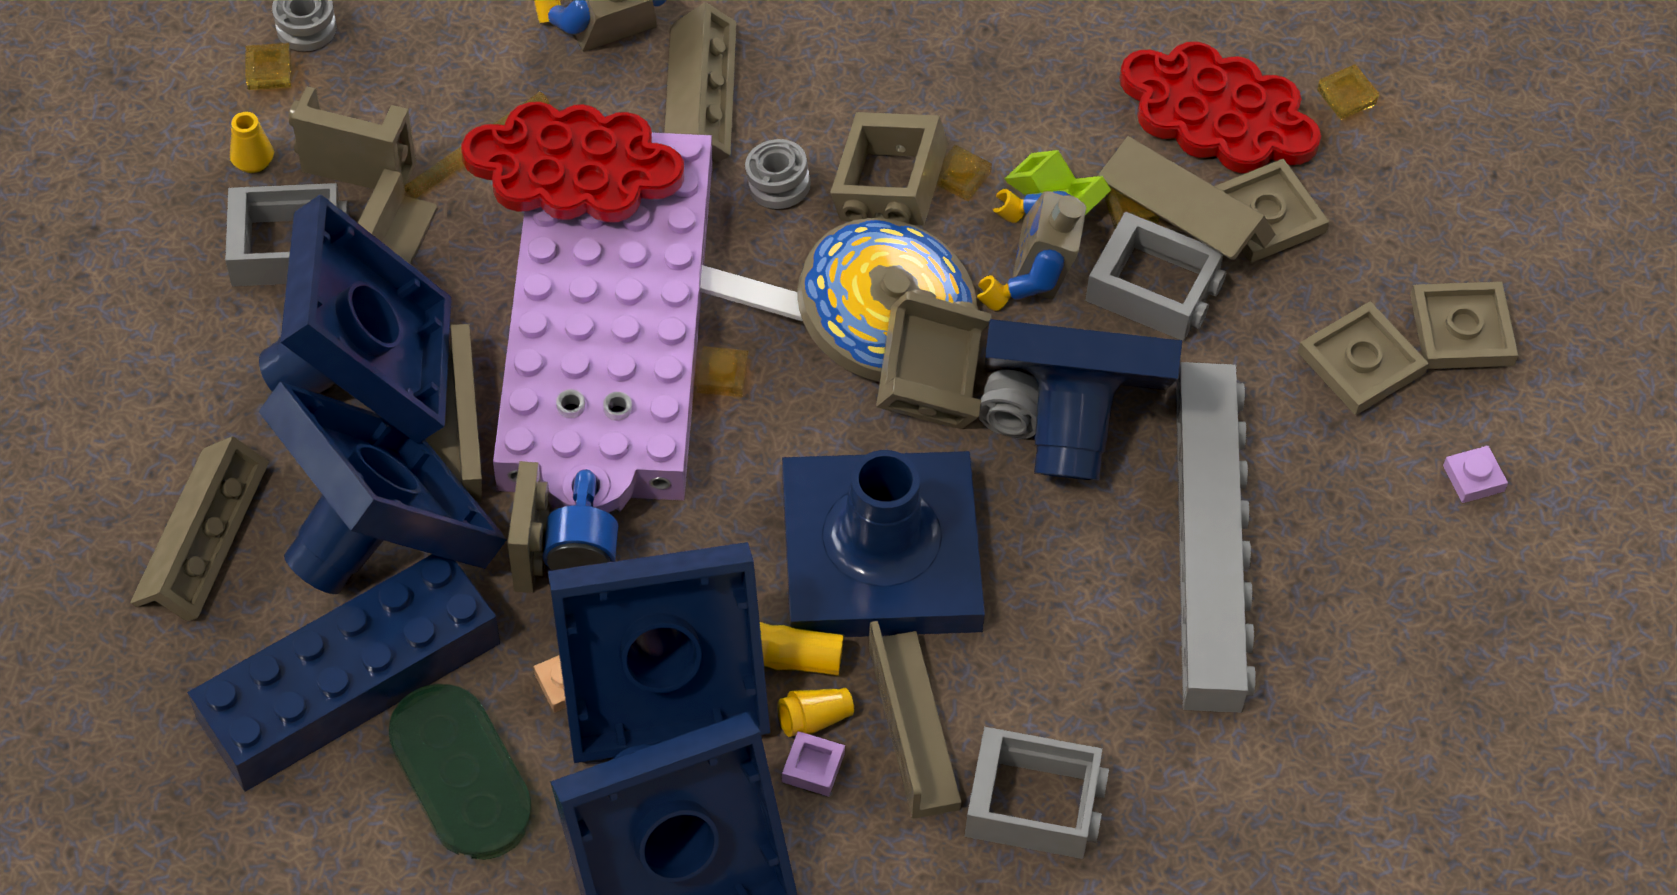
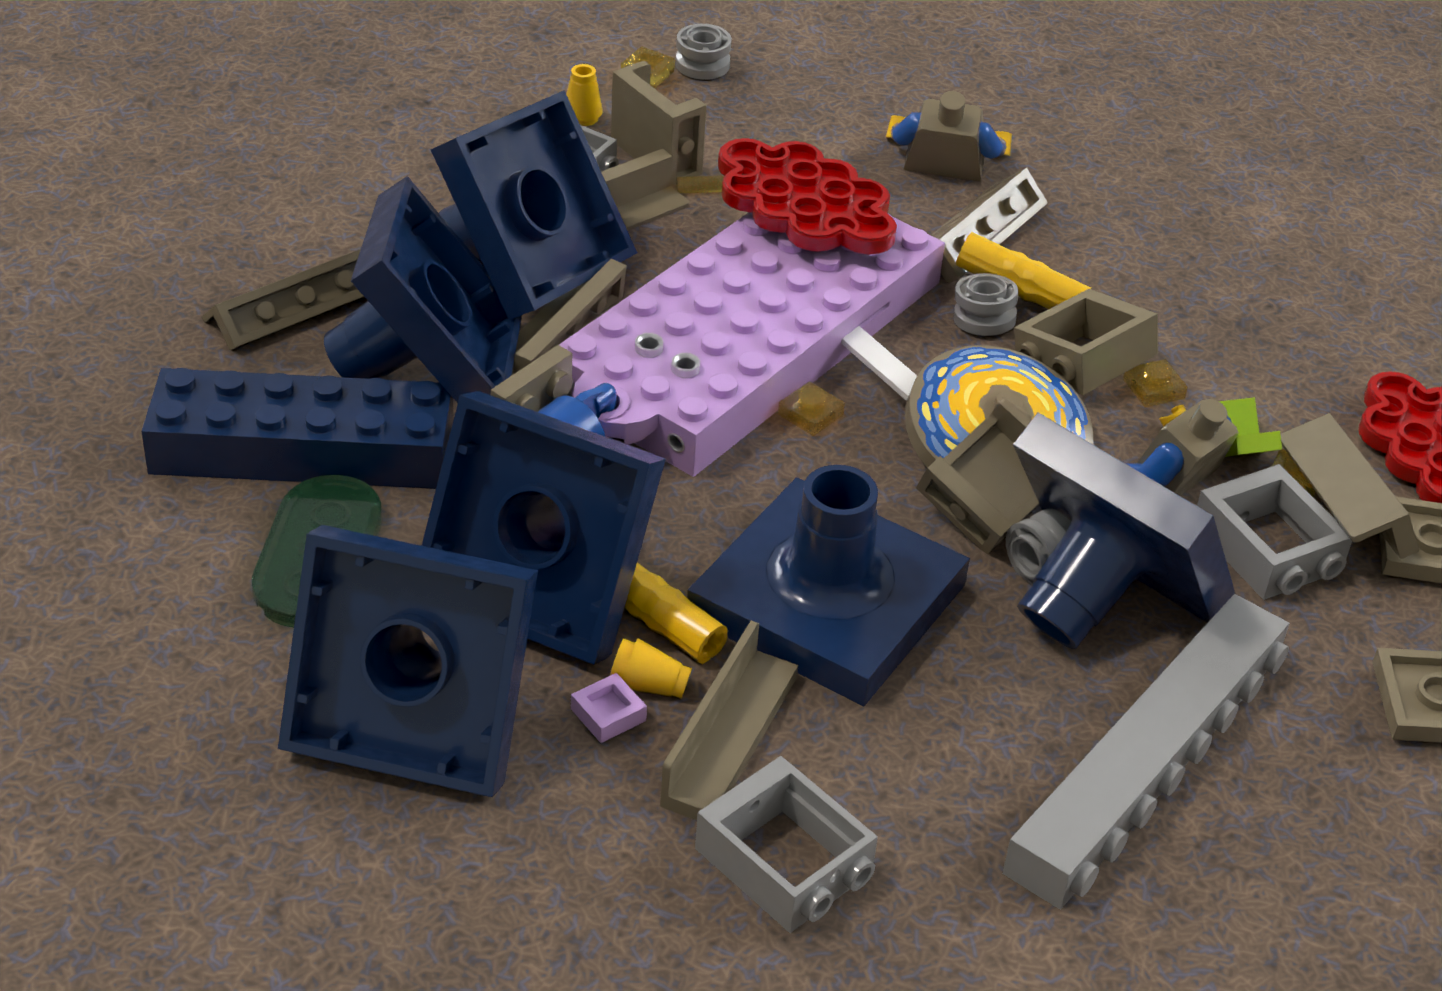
camera: 35 degrees right, 15 degrees down
(795, 124) = (1033, 278): none -> yellow axle

